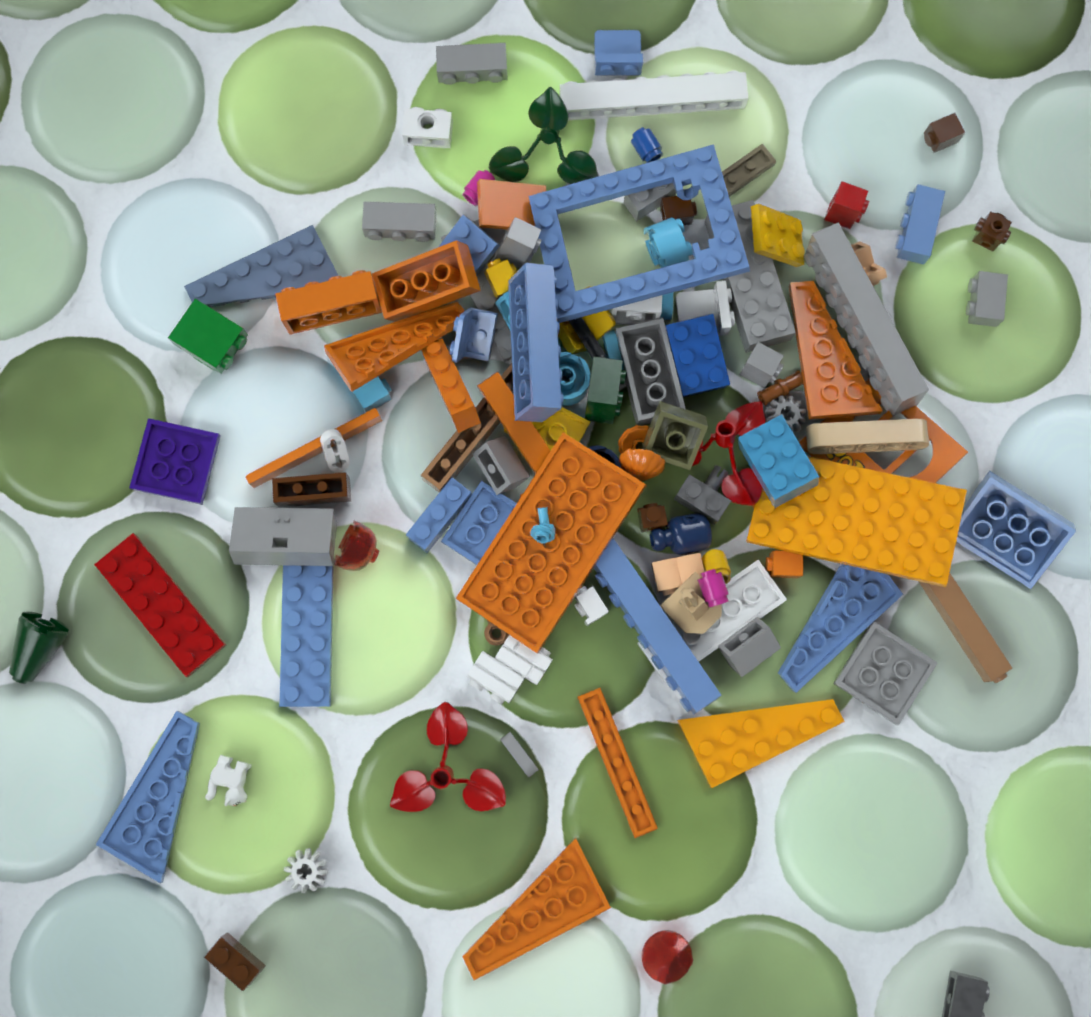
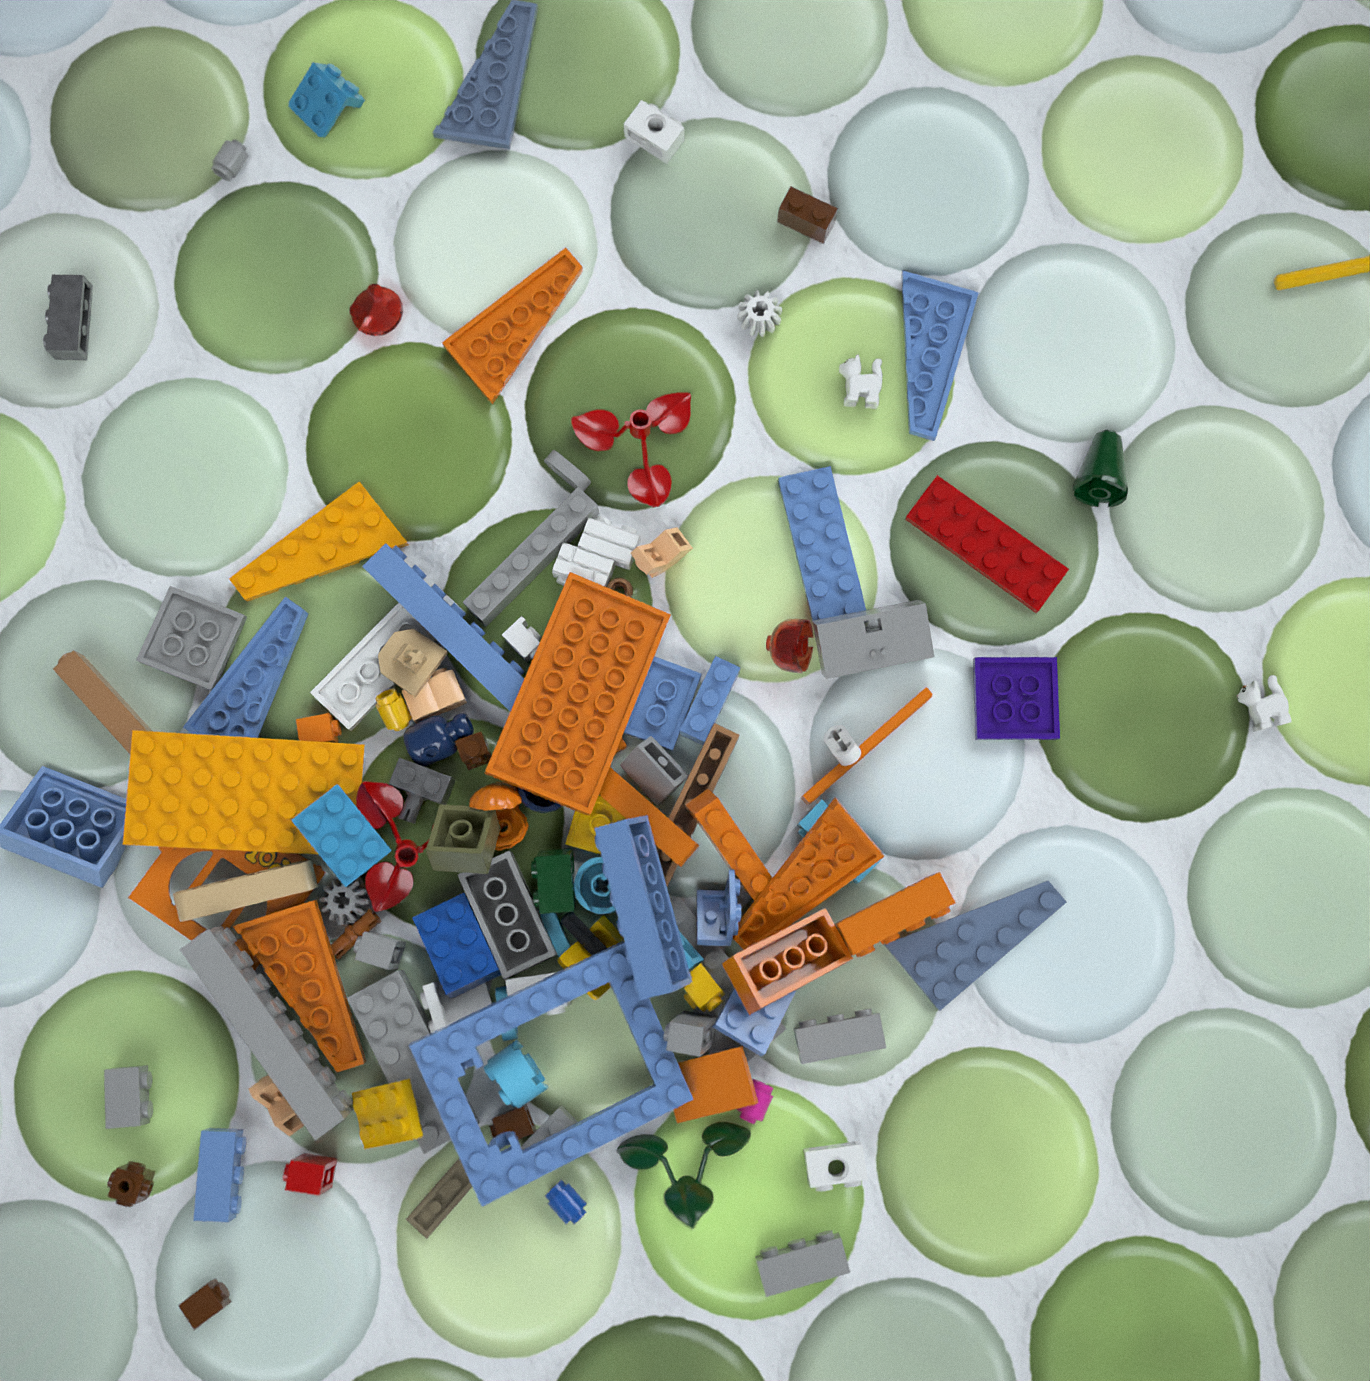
camera: 170 degrees right, 0 degrees up
(208, 336) = (1019, 844): green brick -> none
(311, 489) = (856, 696): reddish brown brick -> none
(450, 657) = (661, 552): none -> light nougat brick
(545, 531) = (588, 698): medium azure plate -> none
(567, 679) = (531, 557): none -> light grey brick
(617, 763) = (464, 488): orange tile -> none
(618, 52) = (625, 1321): medium blue bracket -> none
(655, 95) = (570, 1271): white brick -> none
(713, 588) = (390, 678): dark pink brick -> none
(749, 647) = (342, 631): light grey brick -> none

